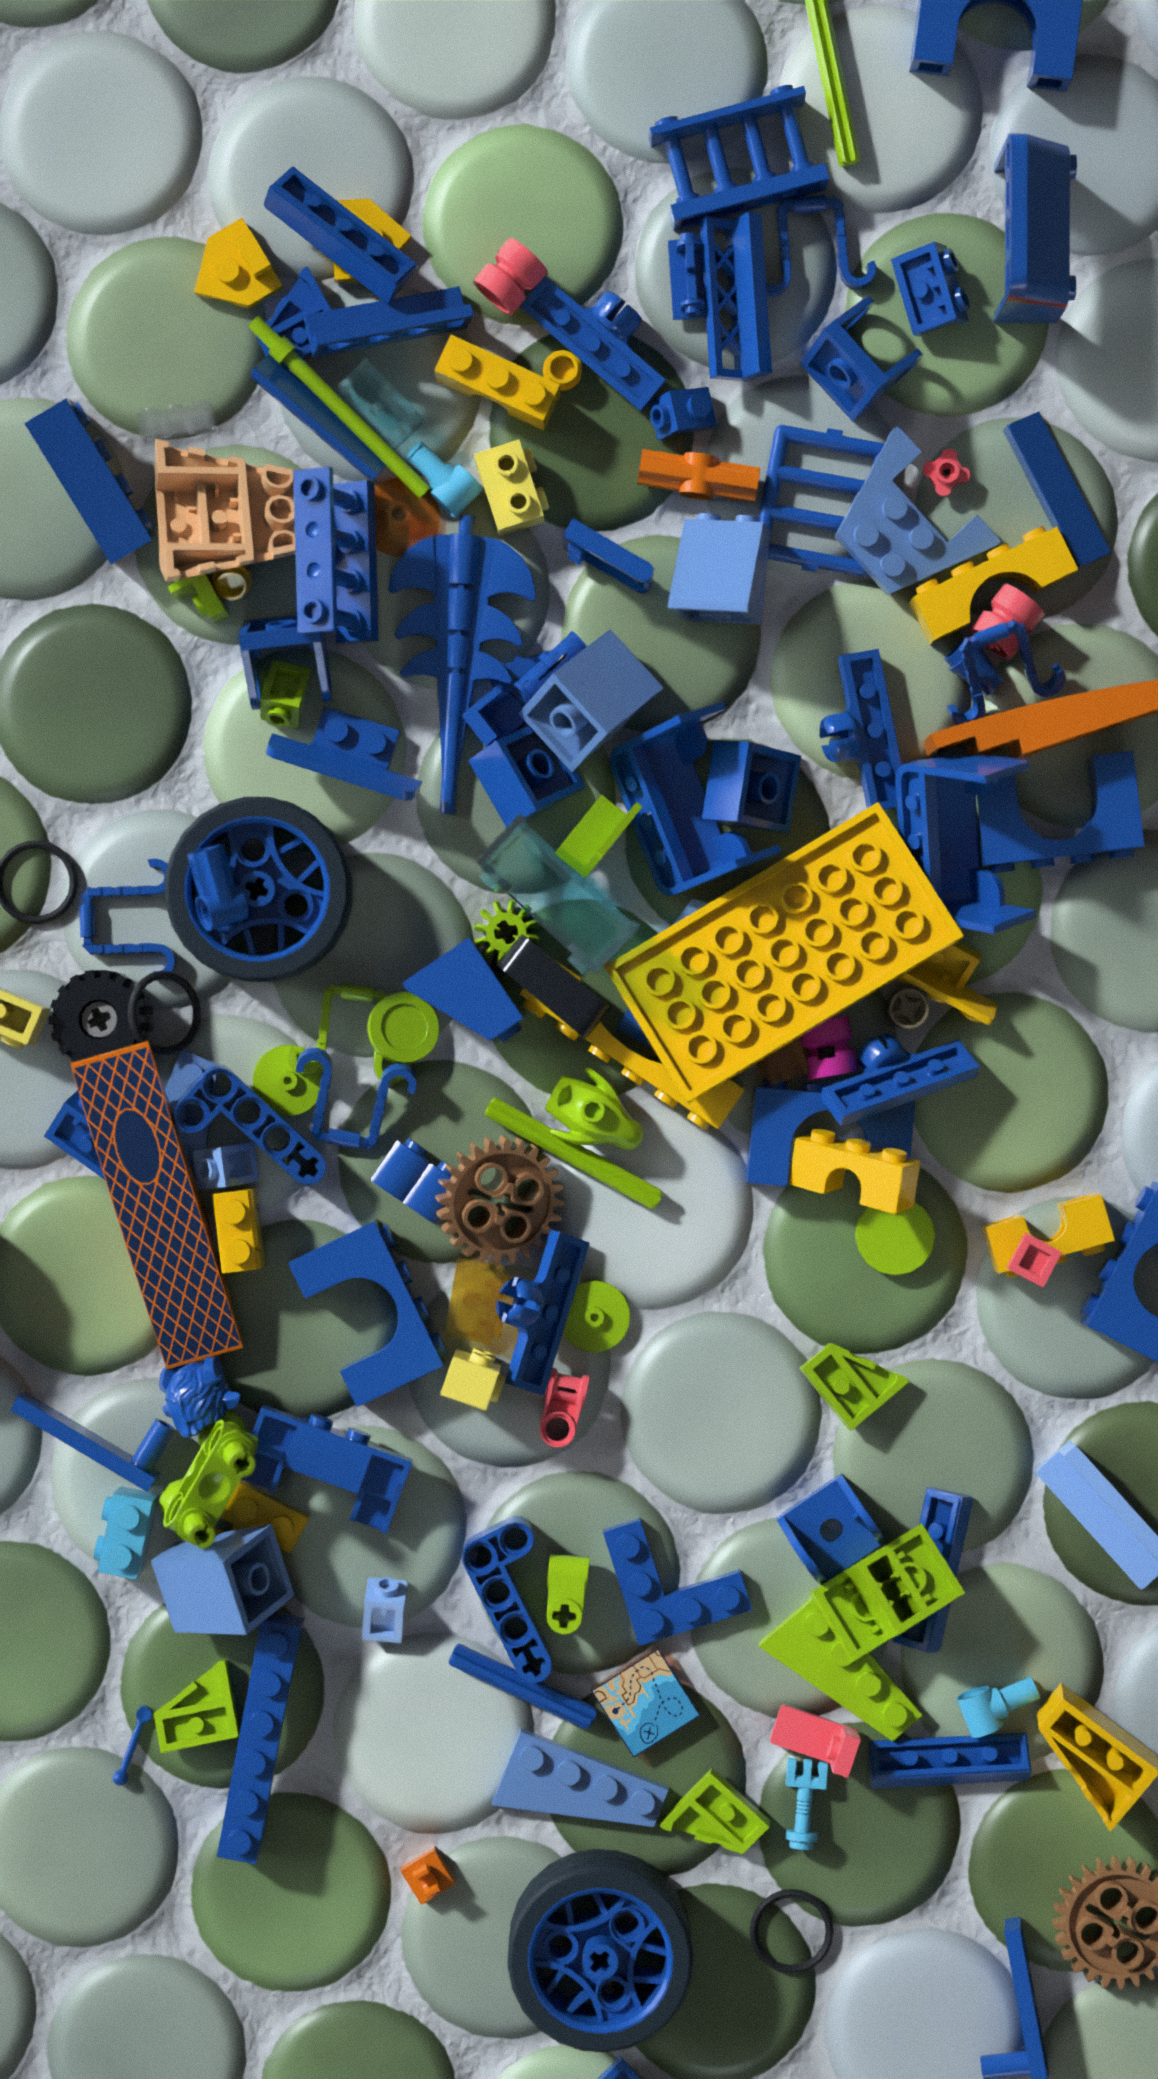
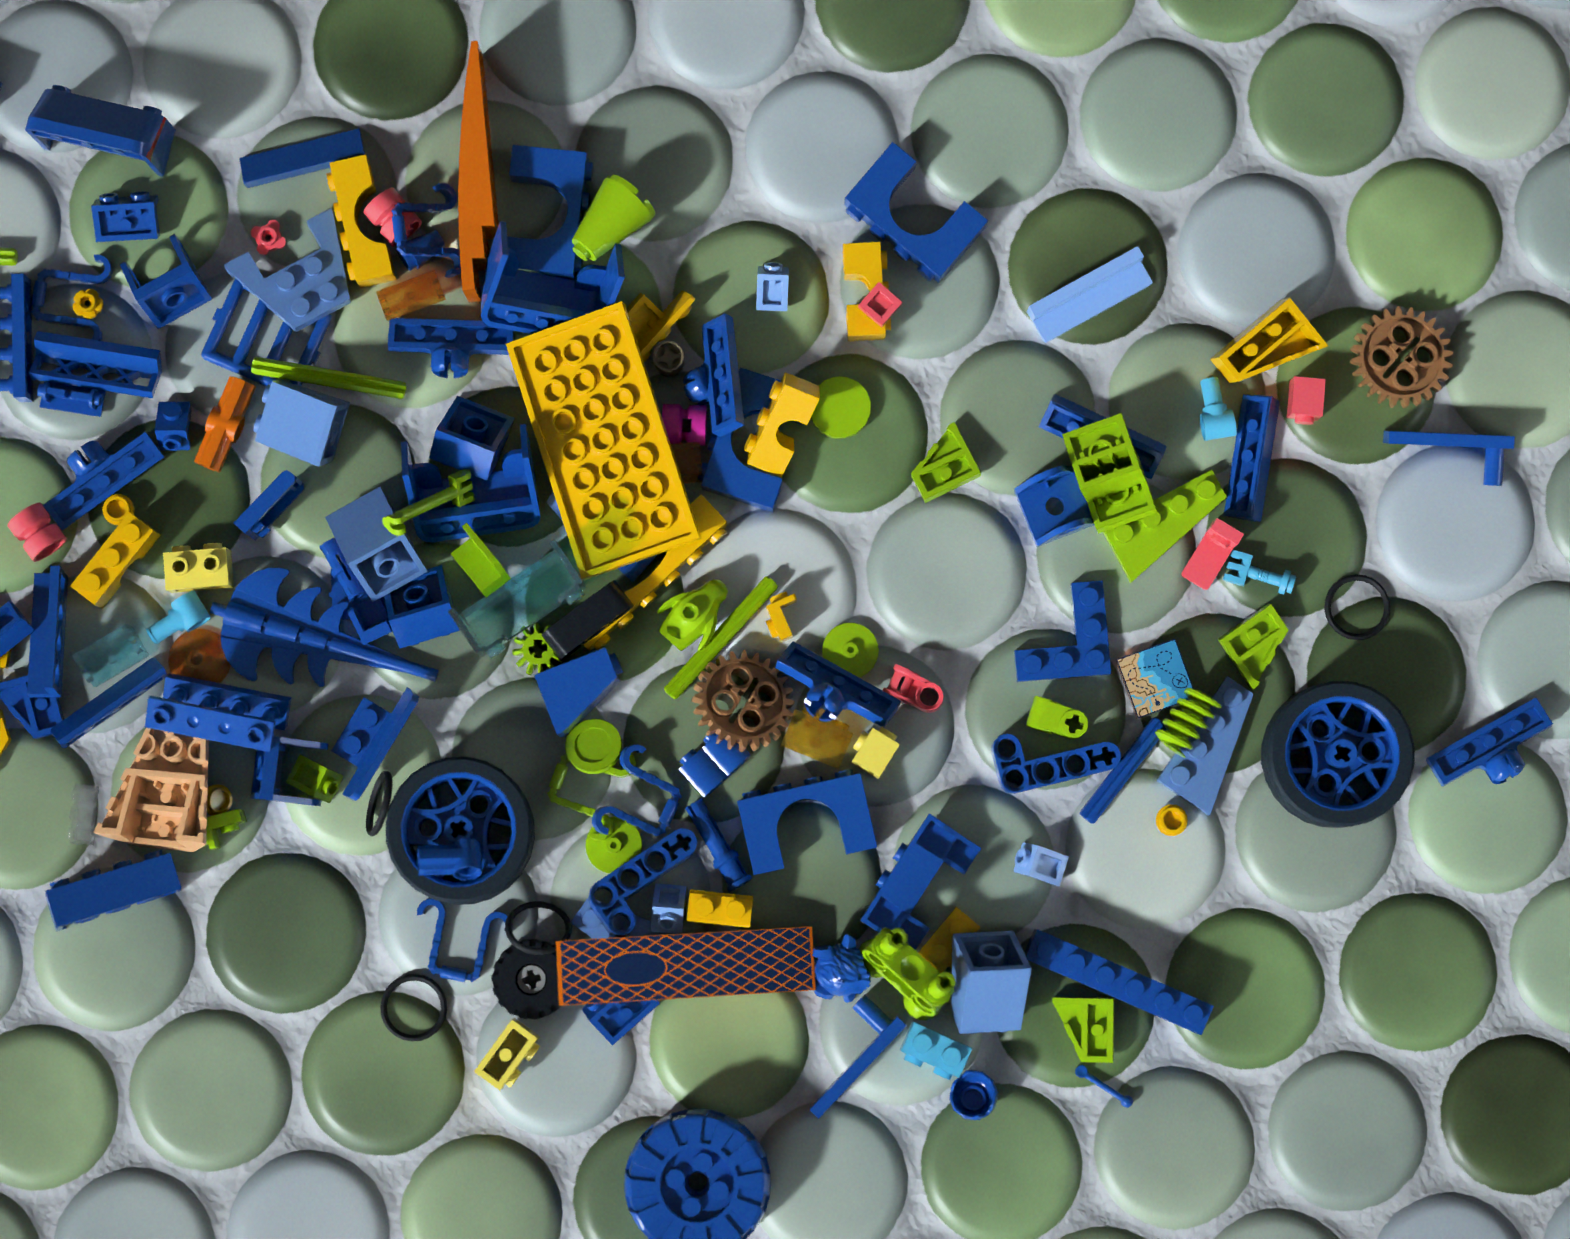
camera: 80 degrees left, 5 degrees down
(82, 1592) = (973, 1095): none -> blue hair
(270, 772) = (387, 777): none -> black tyre
(284, 352) = (50, 718): lime bar -> none
(302, 1221) = (725, 858): none -> blue pin
(428, 1875) = (1254, 877): orange tile -> none
(475, 1758) = (1171, 820): none -> yellow plate
(599, 1754) = (1186, 720): none -> lime piece
(606, 1220) = (777, 623): none -> yellow bracket
(678, 786) = (456, 492): none -> lime hinge
(786, 590) = (328, 377): none -> lime axle
(811, 278) = (93, 309): none -> yellow plate
(913, 668) = (411, 295): none -> clear orange hinge
(1027, 1117) = (772, 287): none -> light blue bracket
(1036, 1814) = (1306, 399): none -> coral brick
(1066, 896) = (611, 218): none -> lime cone

